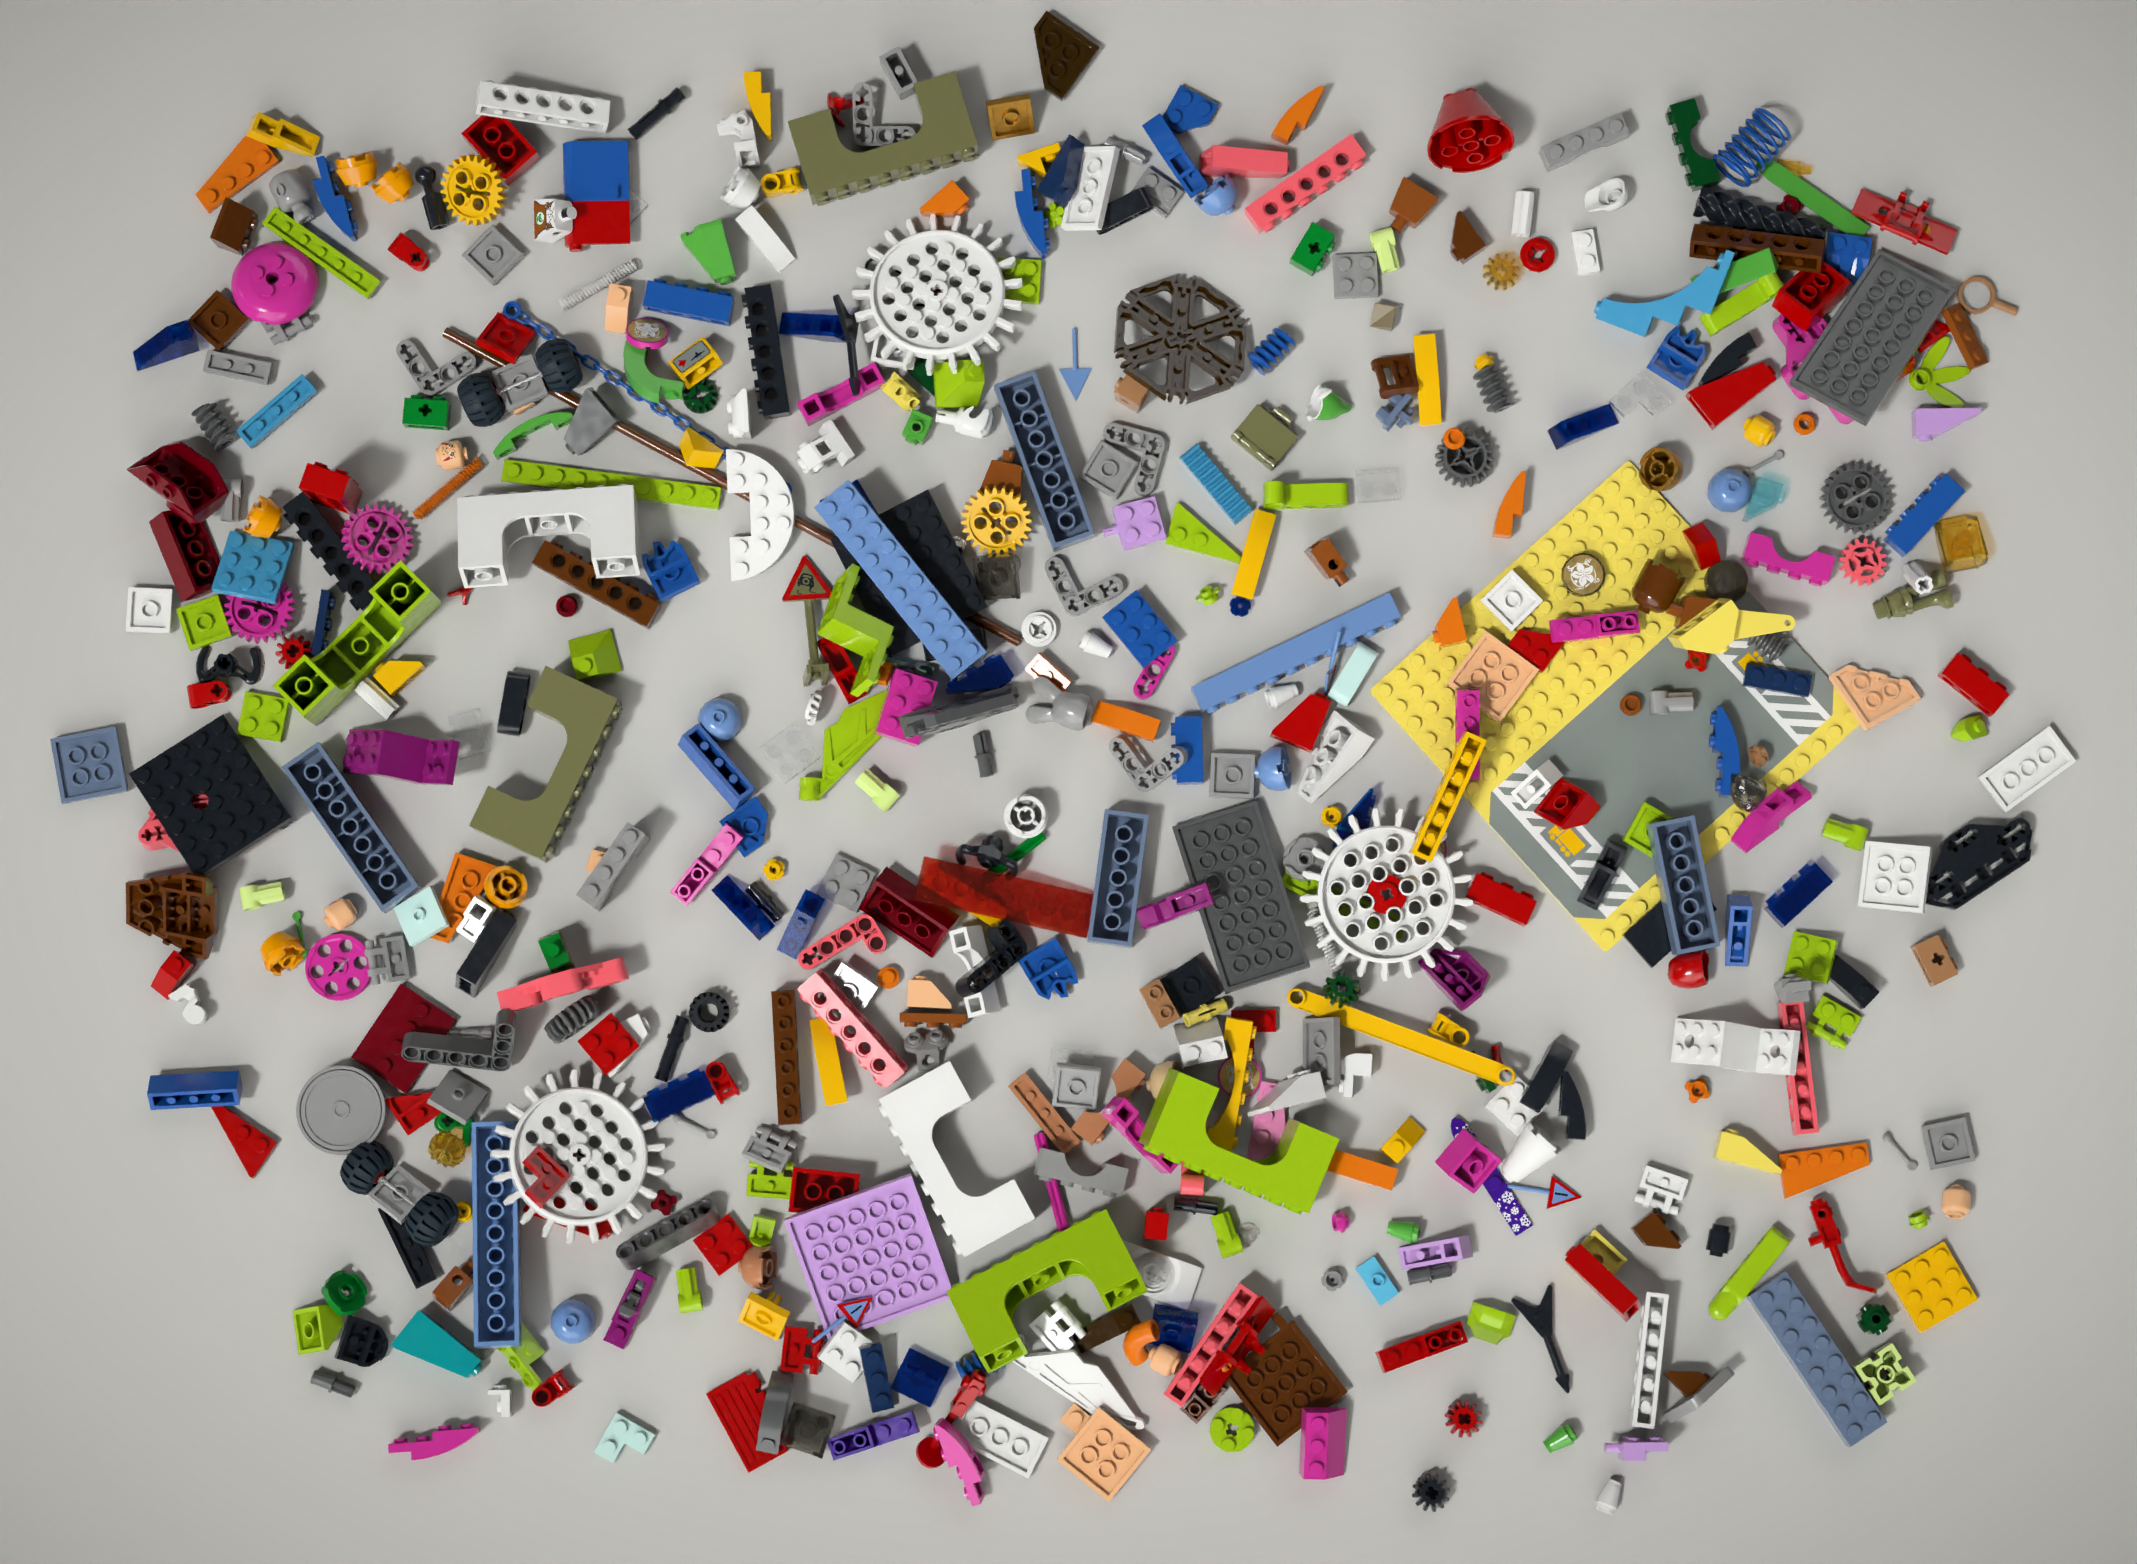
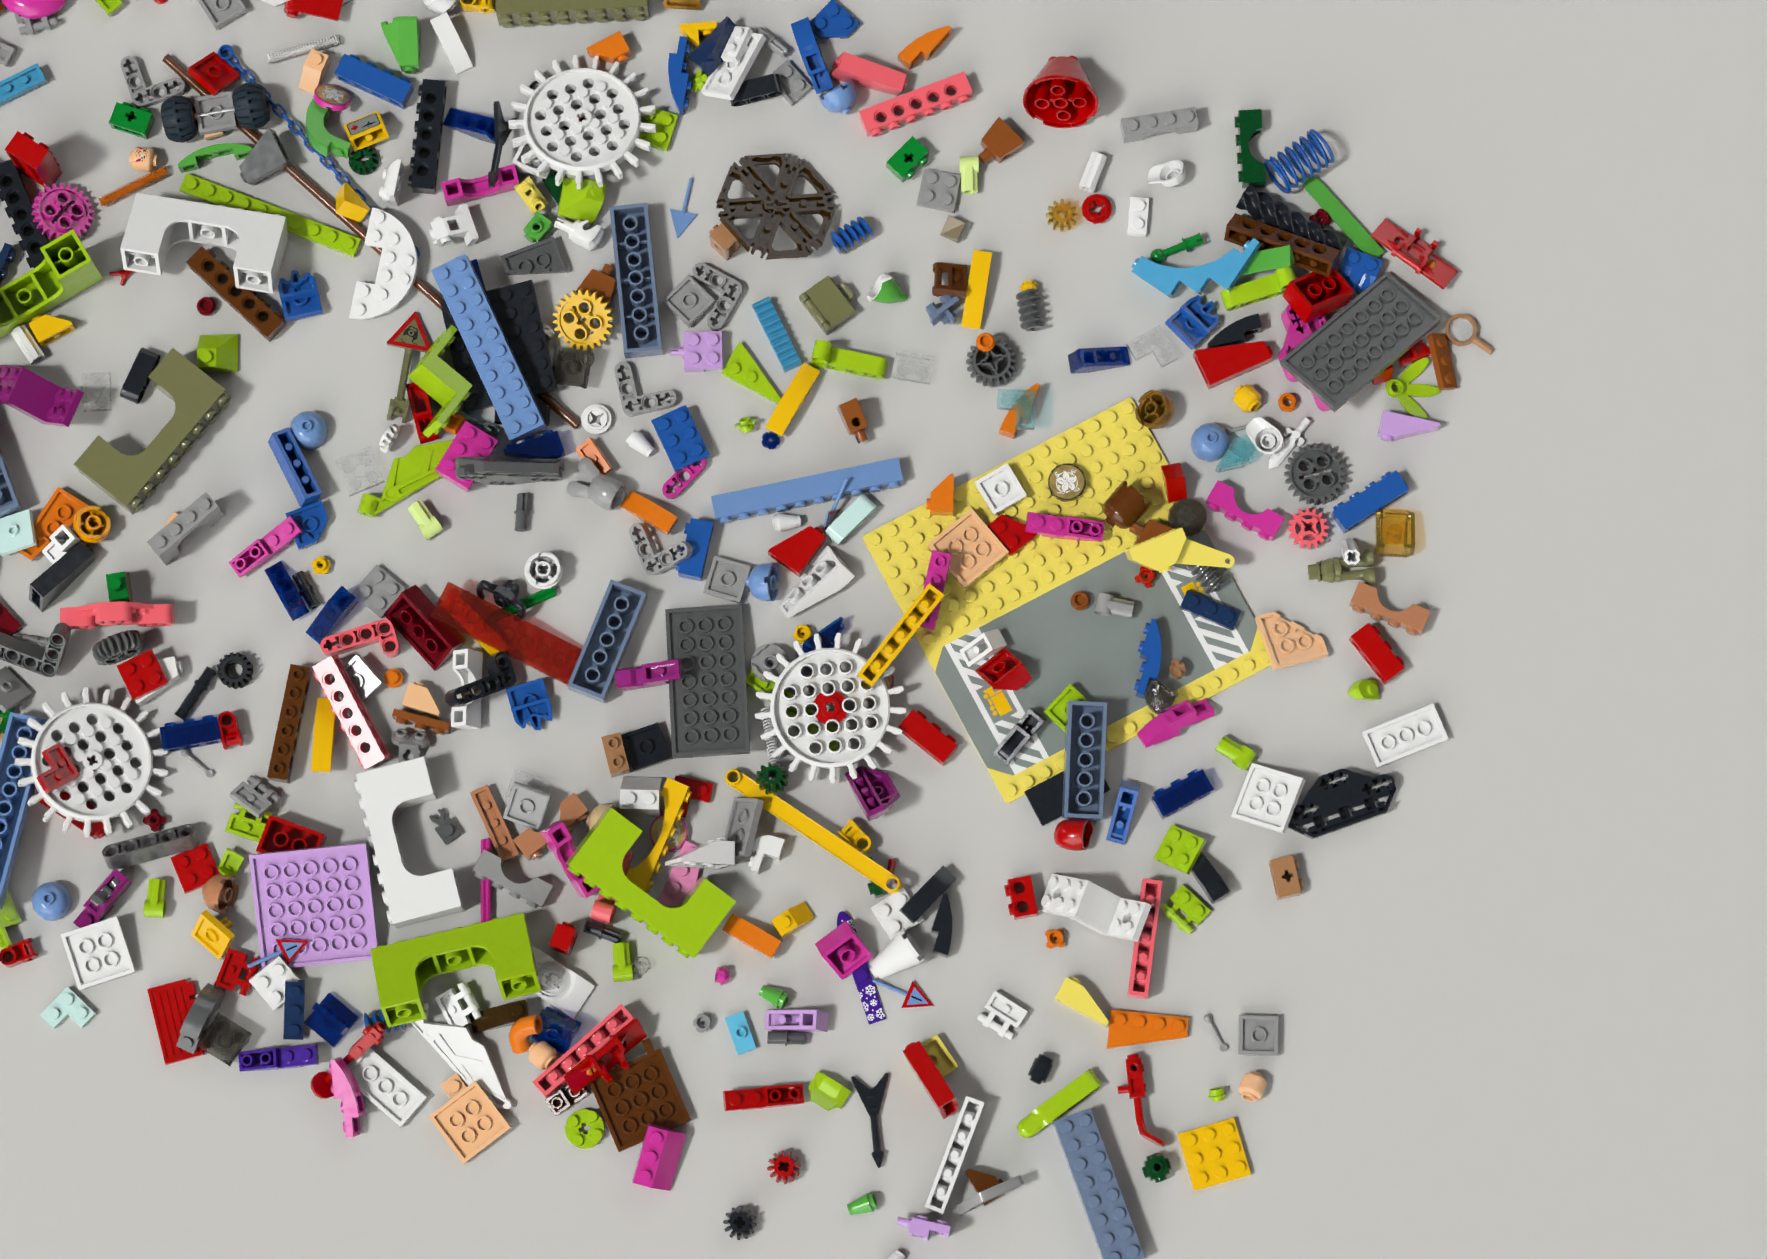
camera: 15 degrees right, 5 degrees down
(640, 1367) = (98, 952): none -> white plate
(923, 463) = (535, 259): none -> dark grey wing
(991, 1133) = (447, 829): none -> dark grey plate
(1088, 163) = (737, 44): none -> white plate
(1217, 1007) = (664, 770): light yellow pin -> none
(1465, 240) = (1038, 183): reddish brown slope -> none
(1513, 497) = (1021, 401): none -> clear light blue plate
(1619, 291) = (1159, 255): none -> green pin
(1654, 1233) = (986, 1049): reddish brown slope -> none
(1655, 1051) = (1026, 897): none -> red brick
(1783, 464) = (1261, 432): none -> white cap
(1792, 989) = (1154, 868): light grey slope -> none
(1795, 167) = (1333, 187): clear yellow bar -> none
(1816, 471) = (1288, 444): none -> white sword
(1896, 1377) = (1141, 1211): yellowish green brick -> none
(1947, 627) = (1366, 600): none -> nougat arch

